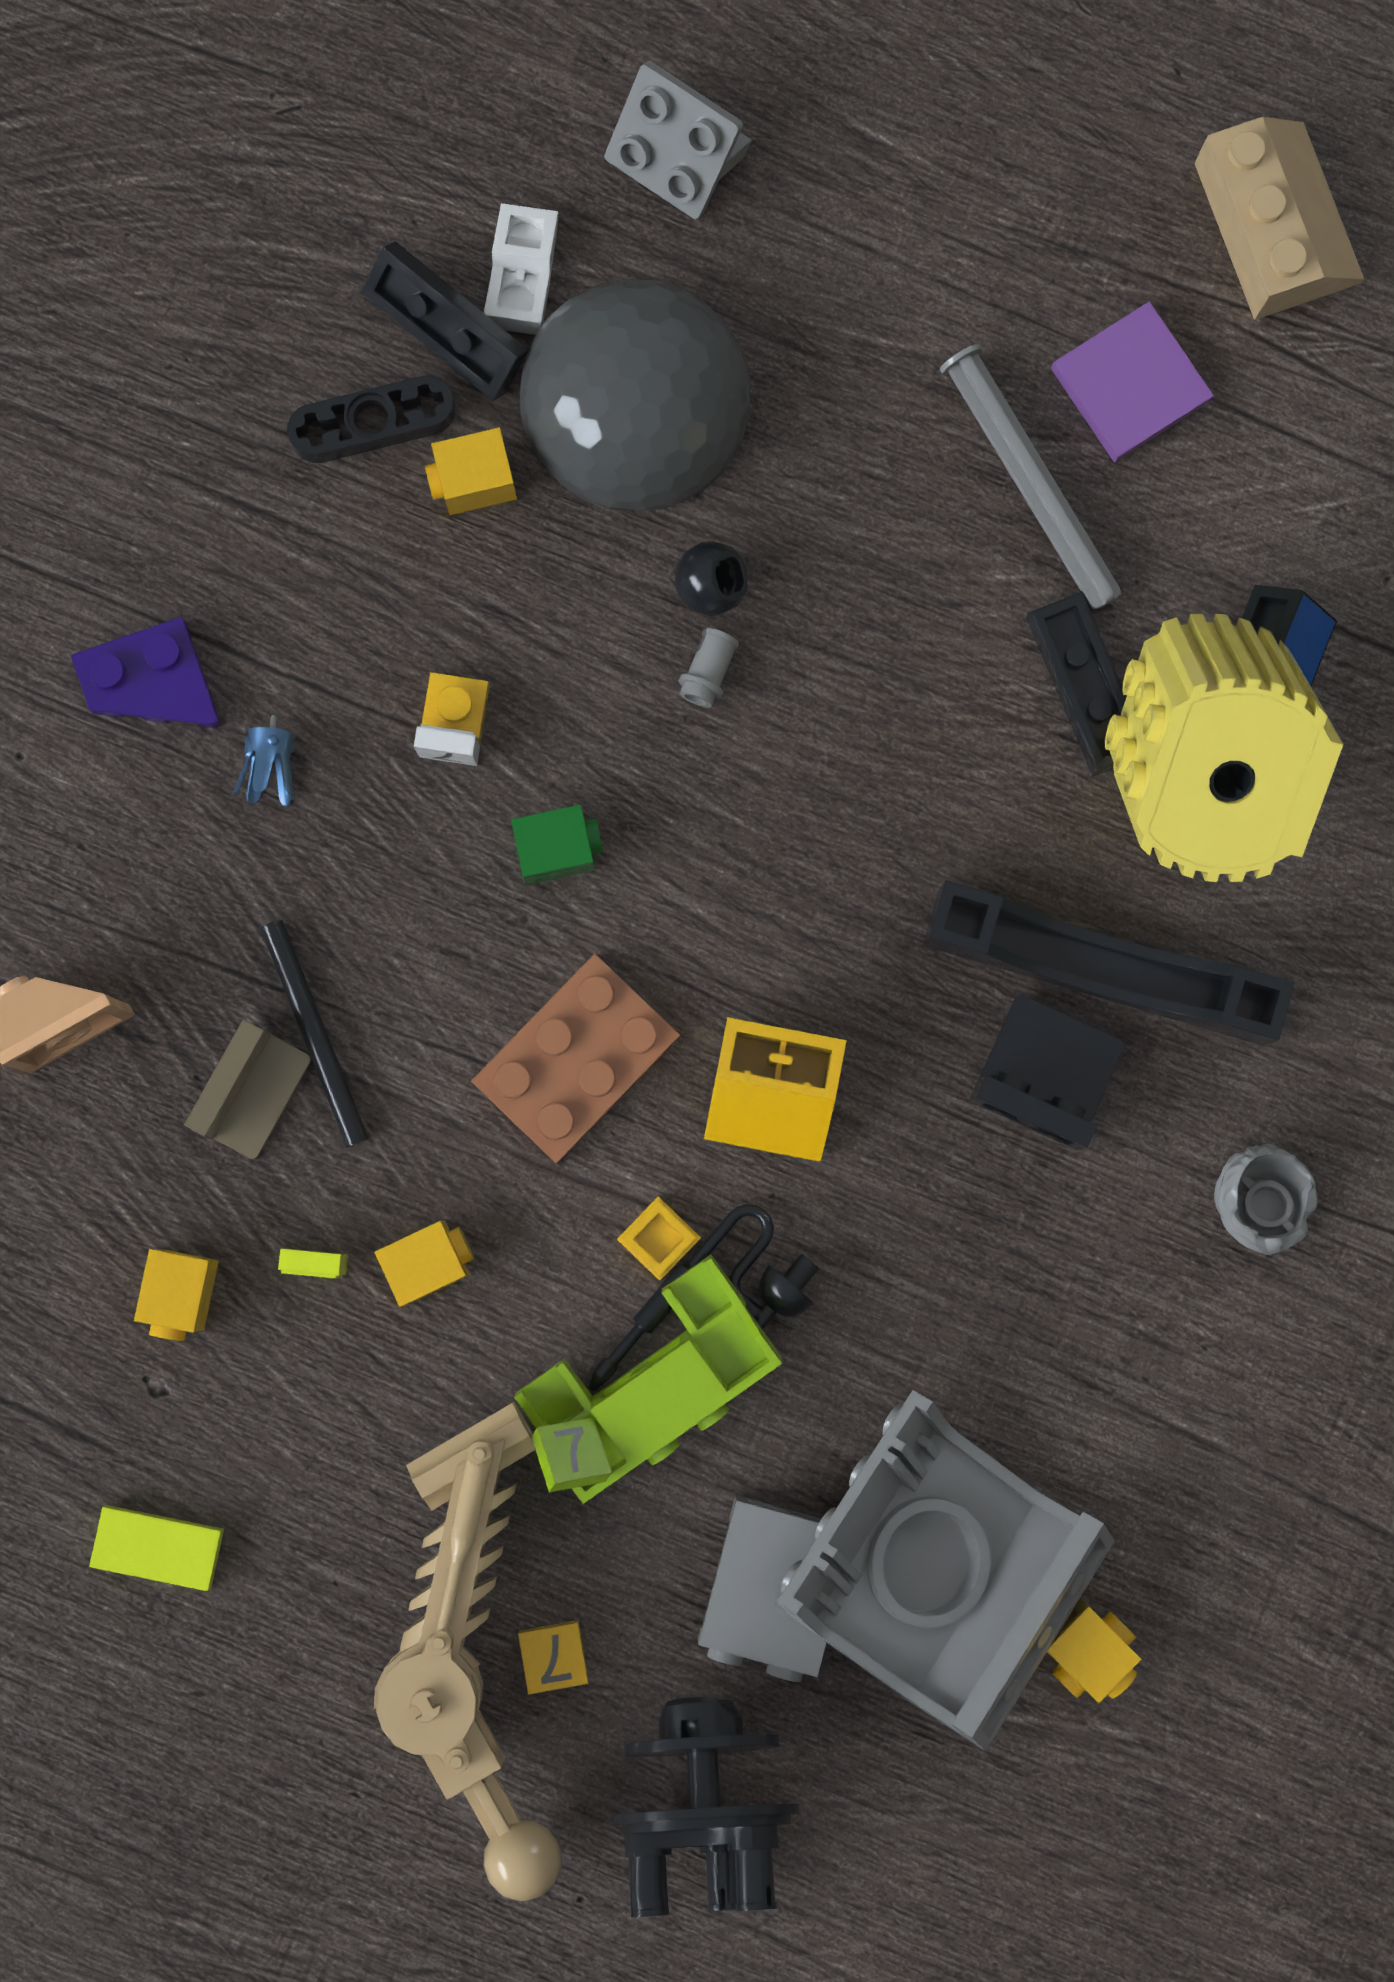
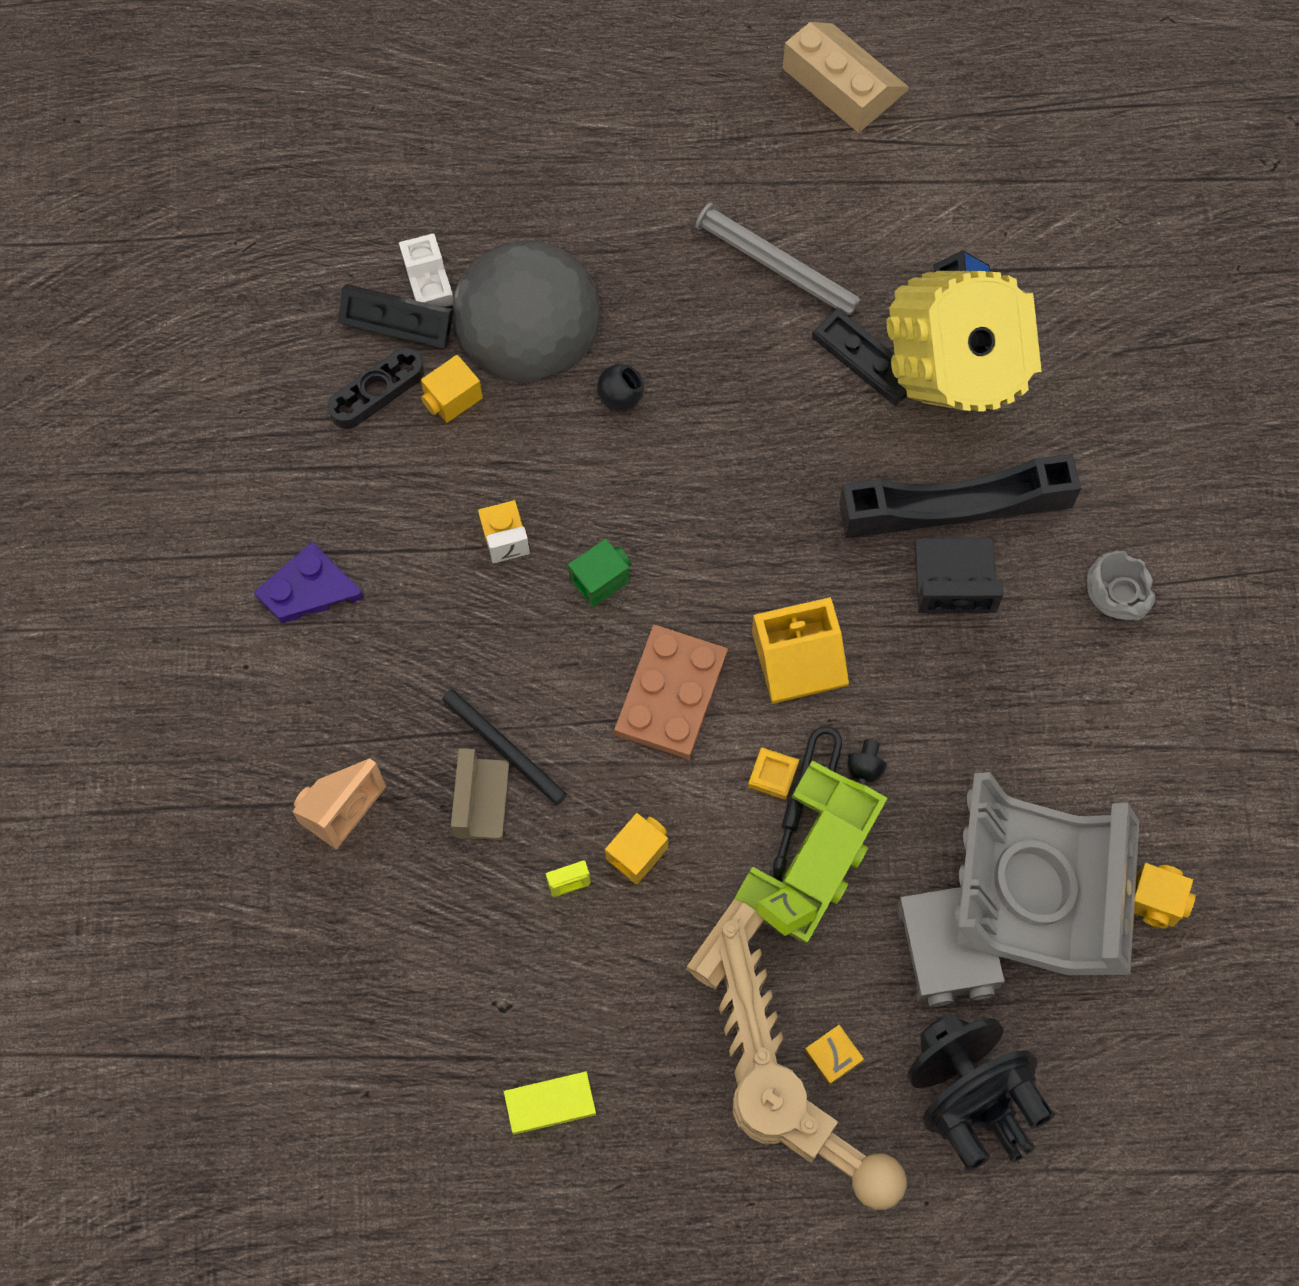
camera: 20 degrees left, 15 degrees down
(175, 1293) = (490, 935): yellow brick -> none
(263, 747) = (402, 600): flat silver piece -> none
(675, 140) = (484, 166): light grey bracket -> none
(708, 668) = (642, 439): light grey pin -> none
(1131, 382) = (807, 190): medium lavender tile -> none

